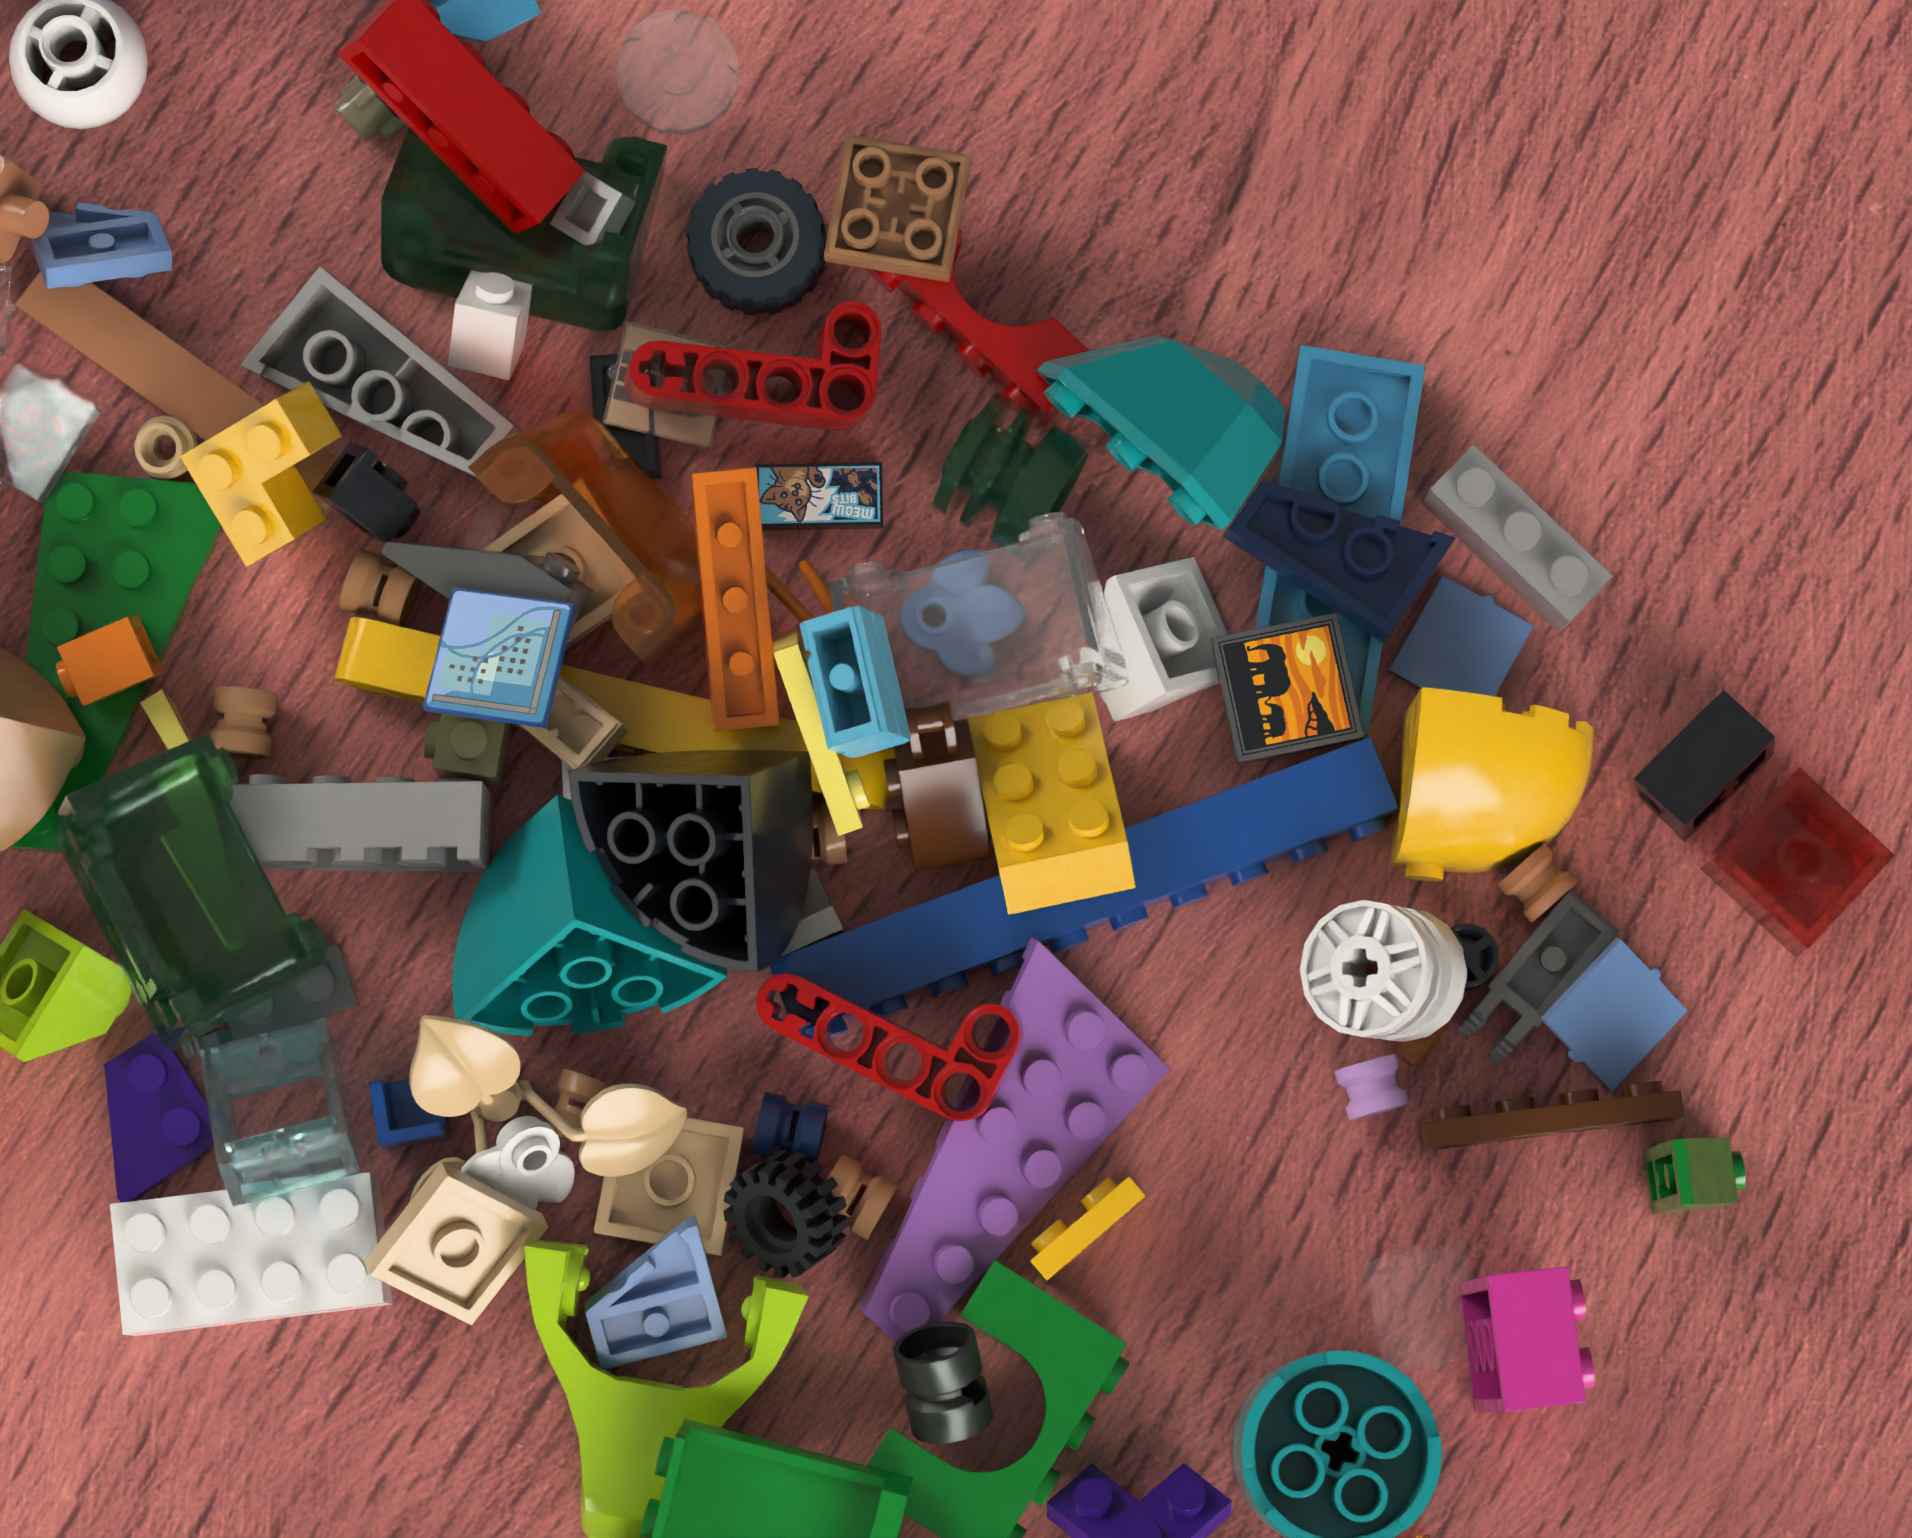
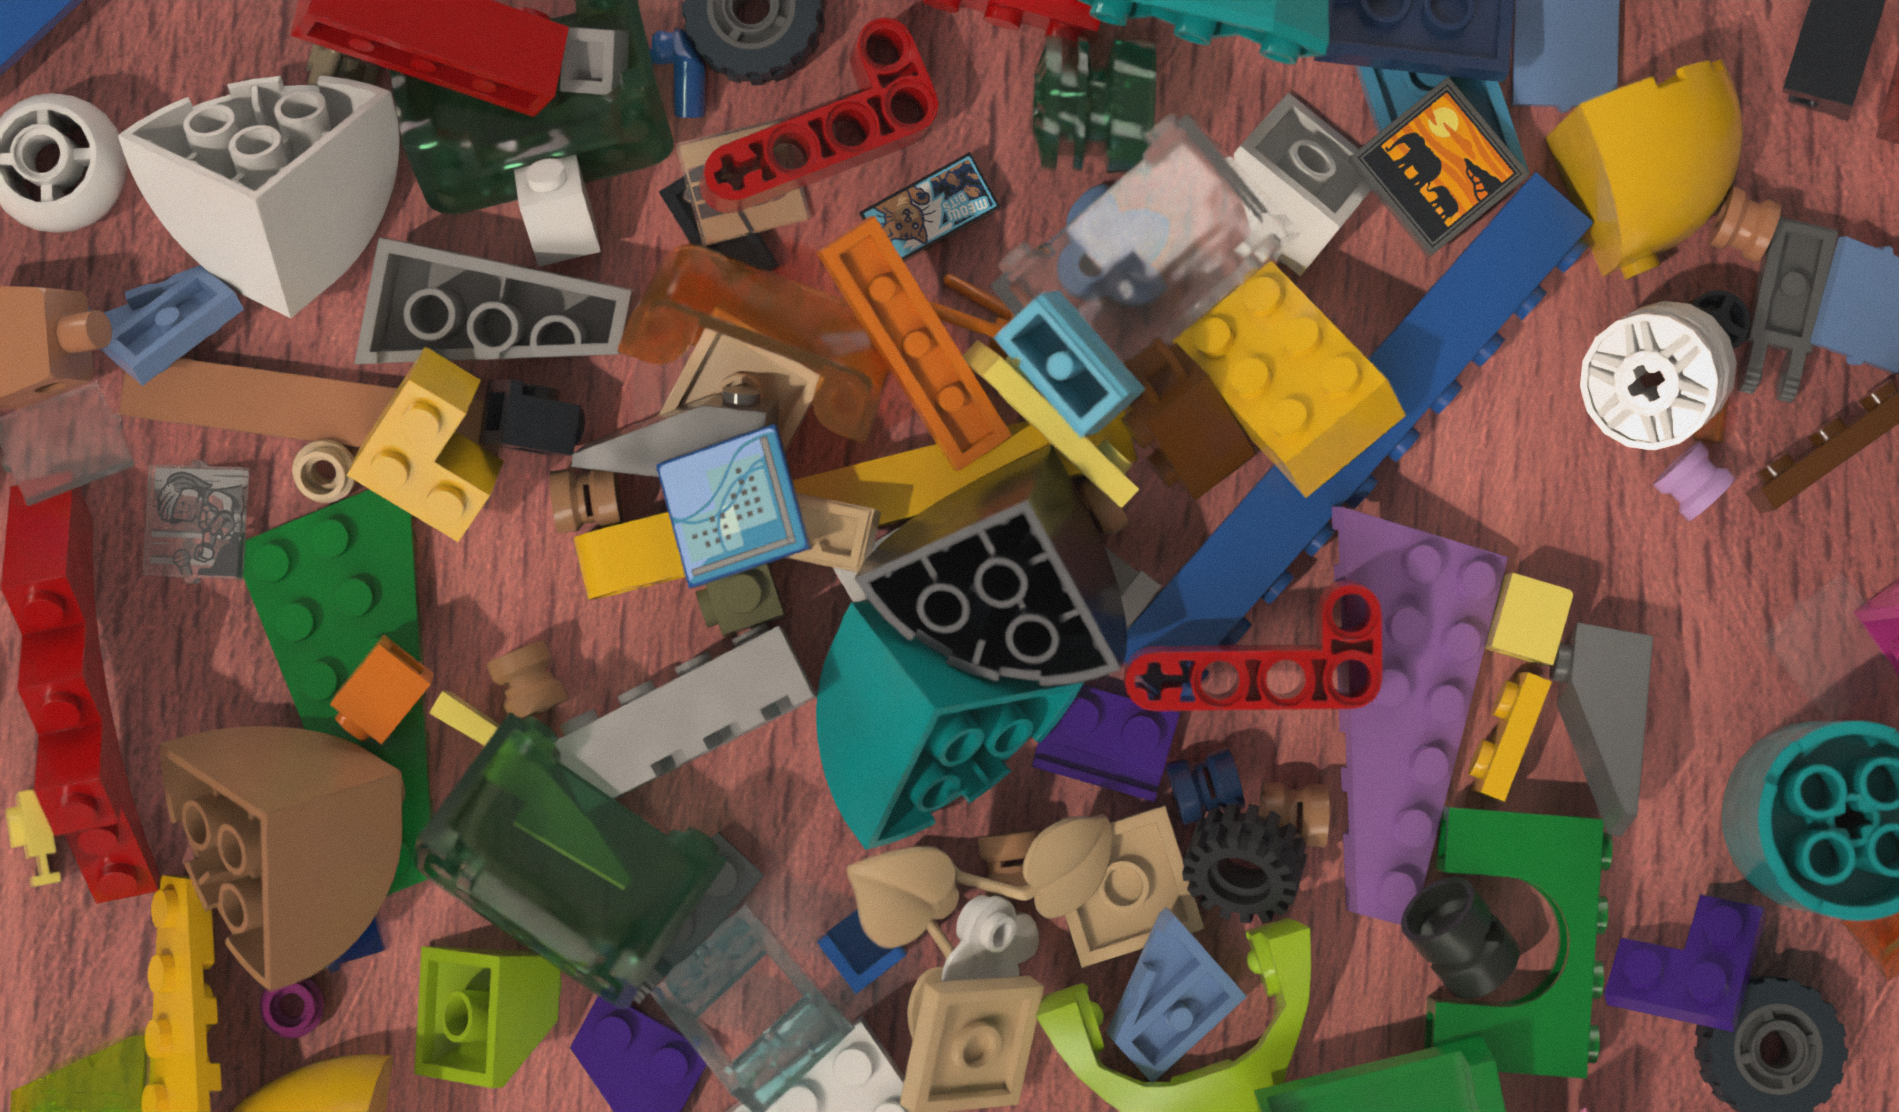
camera: 30 degrees left, 5 degrees up
(255, 171) = (271, 181): none -> white brick
(671, 264) = (688, 71): none -> blue arm
(726, 1047) = (1109, 743): none -> dark purple plate
(1156, 1132) = (1529, 619): none -> light yellow panel
(1179, 1245) = (1604, 710): none -> dark grey slope

